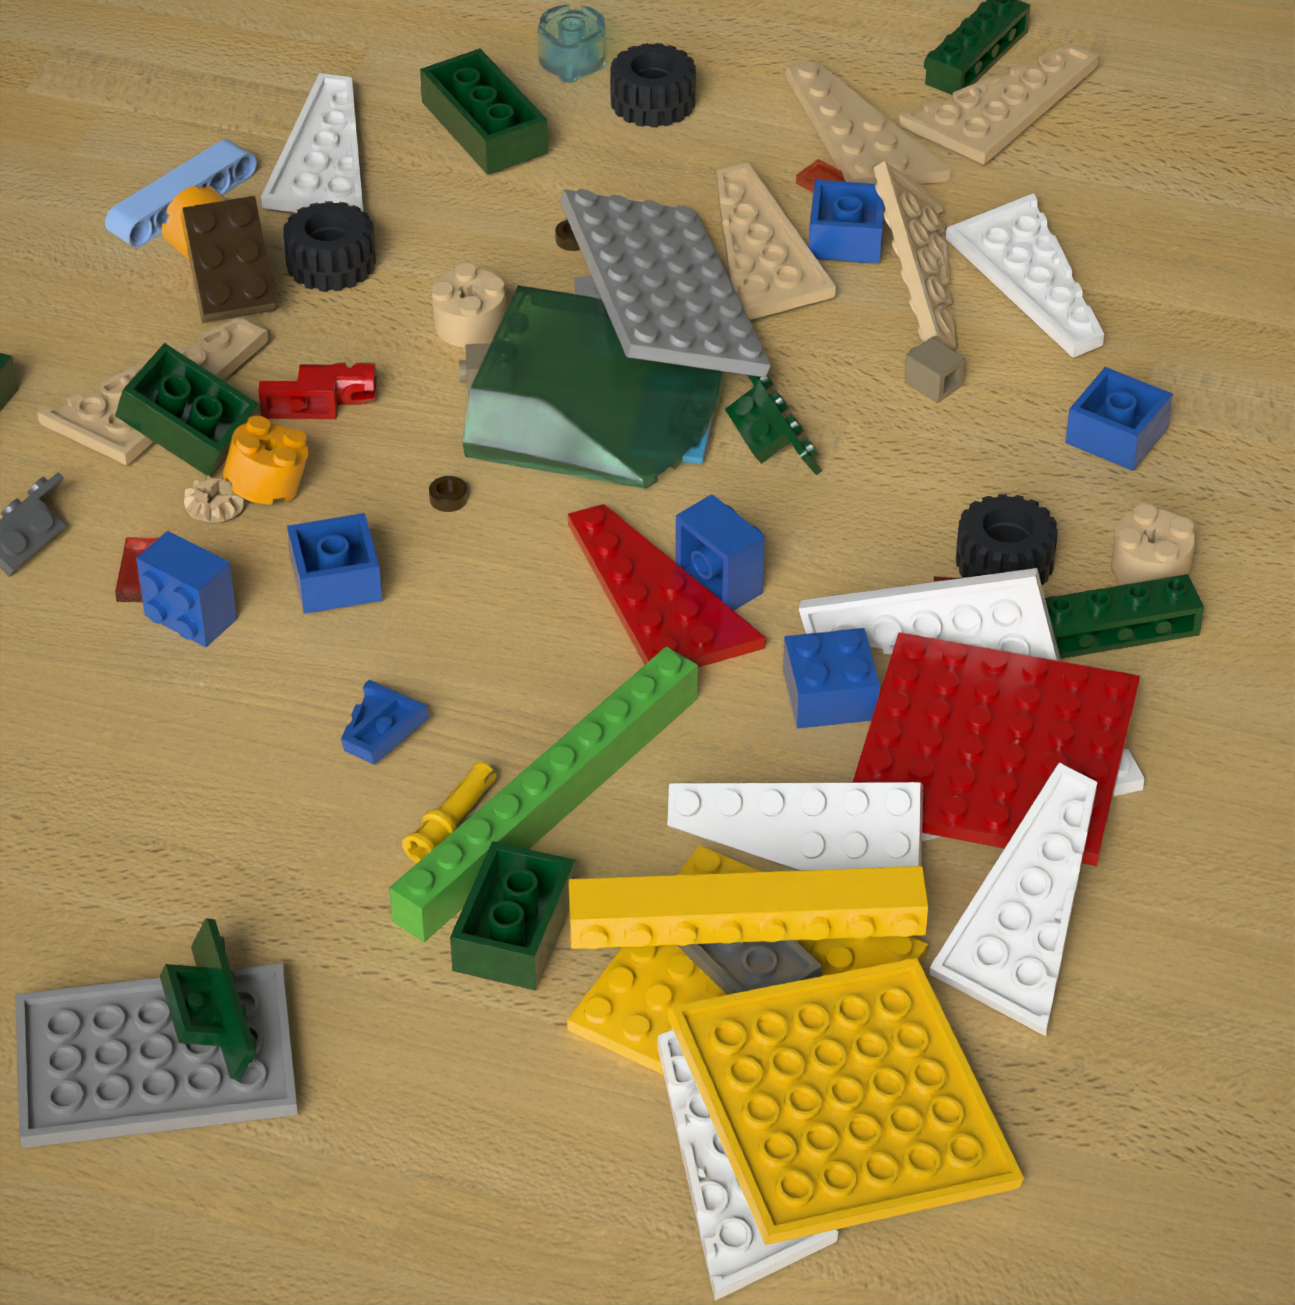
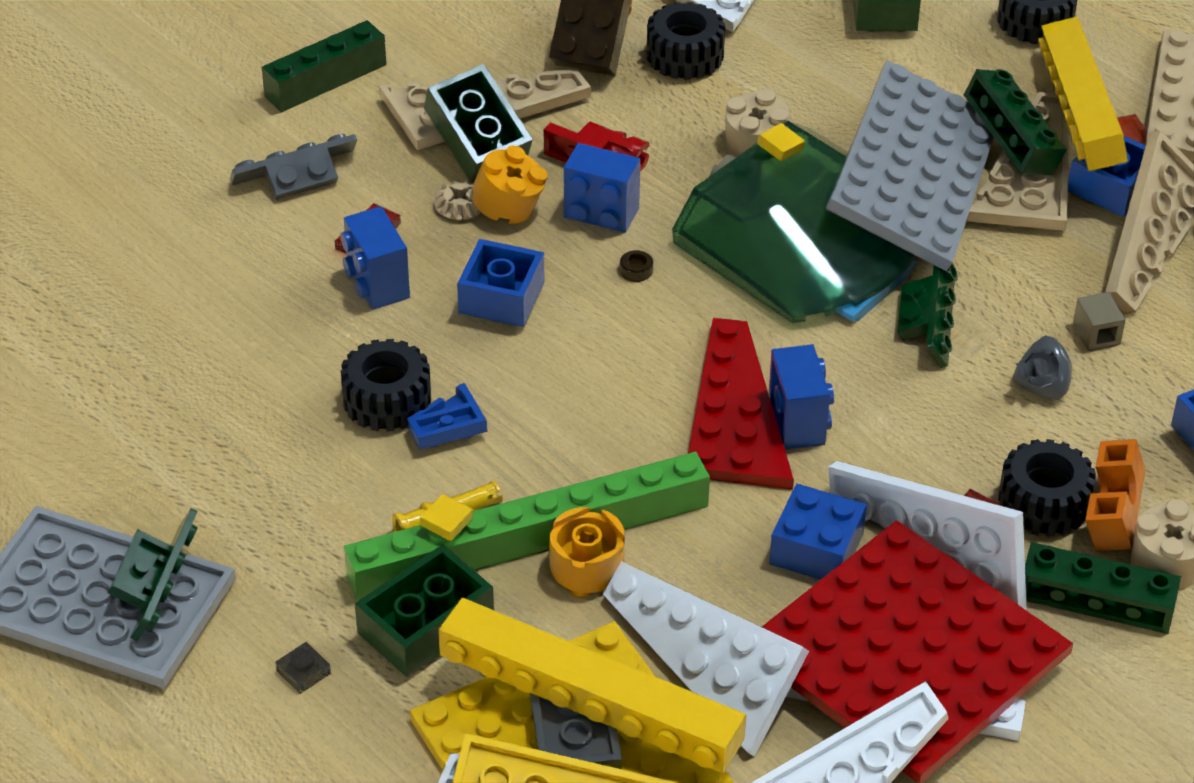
camera: 30 degrees right, 0 degrees up
(294, 713) = (385, 384): none -> black tyre
(366, 426) = (601, 187): none -> blue brick
(424, 1029) = (303, 667): none -> clear smoke plate
(479, 812) = (446, 517): none -> yellow tile
(532, 308) = (781, 142): none -> yellow tile
(626, 788) = (585, 550): none -> light orange brick
(726, 206) = (1015, 122): none -> dark green brick
(773, 154) = (1082, 95): none -> yellow brick
(922, 435) = (1045, 369): none -> dark grey piece
(1077, 529) = (1115, 510): none -> orange arch

